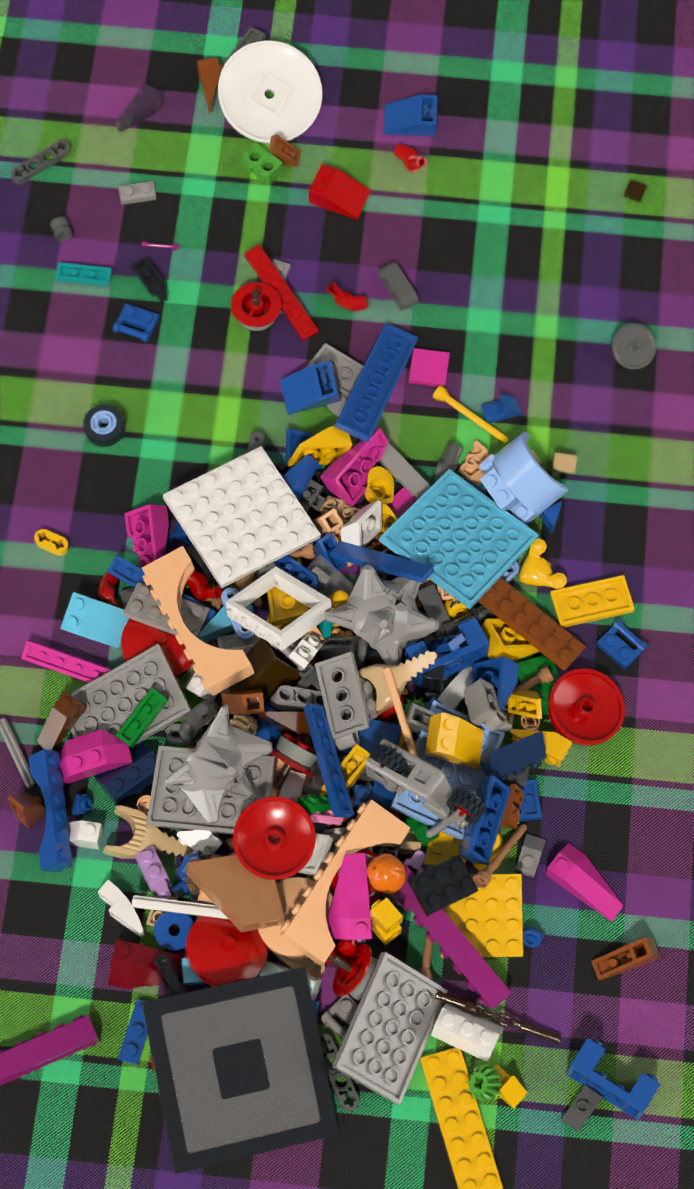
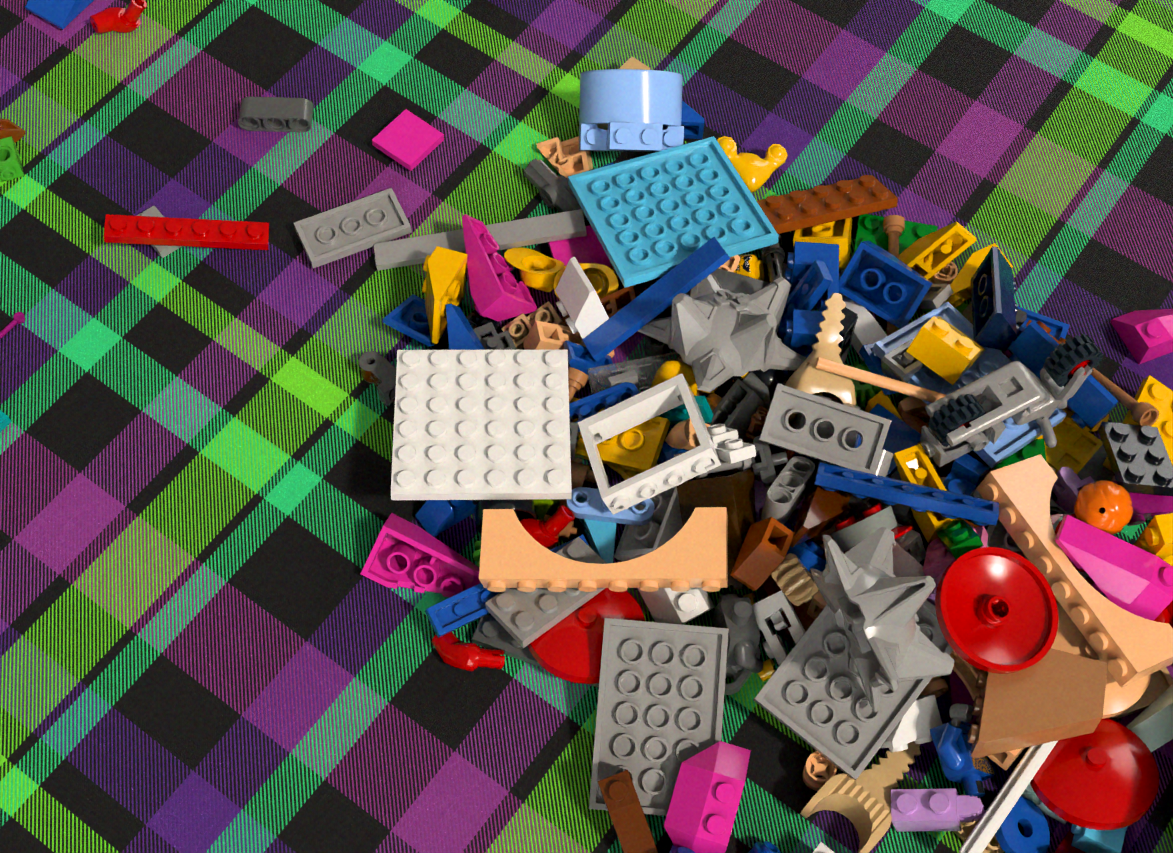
camera: 60 degrees left, 5 degrees down
(52, 540) = (333, 686): yellow beam -> none
(63, 662) = (537, 766): dark pink plate -> none
(94, 620) = (499, 691): medium azure slope -> none
(104, 415) = (207, 515): black wheel -> none
(131, 778) = (767, 780): dark blue slope -> none
(137, 318) = (87, 411): blue plate -> none
(142, 717) = (700, 698): green plate -> none
(150, 279) = (43, 366): black hinge -> none
(256, 305) = (185, 265): red piece -> none
(310, 388) = (346, 265): blue slope -> none
(338, 192) = (99, 109): red slope -> none
(346, 300) = (254, 173): red arm -> none
(376, 382) = (397, 192): blue plate -> none
(442, 395) = (452, 146): yellow piece -> none
(483, 705) = (912, 296): light grey hinge -> none
(500, 410) = (513, 103): blue slope -> none
(530, 855) = (1115, 366): light grey slope -> none
(586, 707) = (951, 195): red dish -> none
(592, 601) = (818, 141): yellow plate -> none
(618, 649) = (890, 149): blue plate -> none

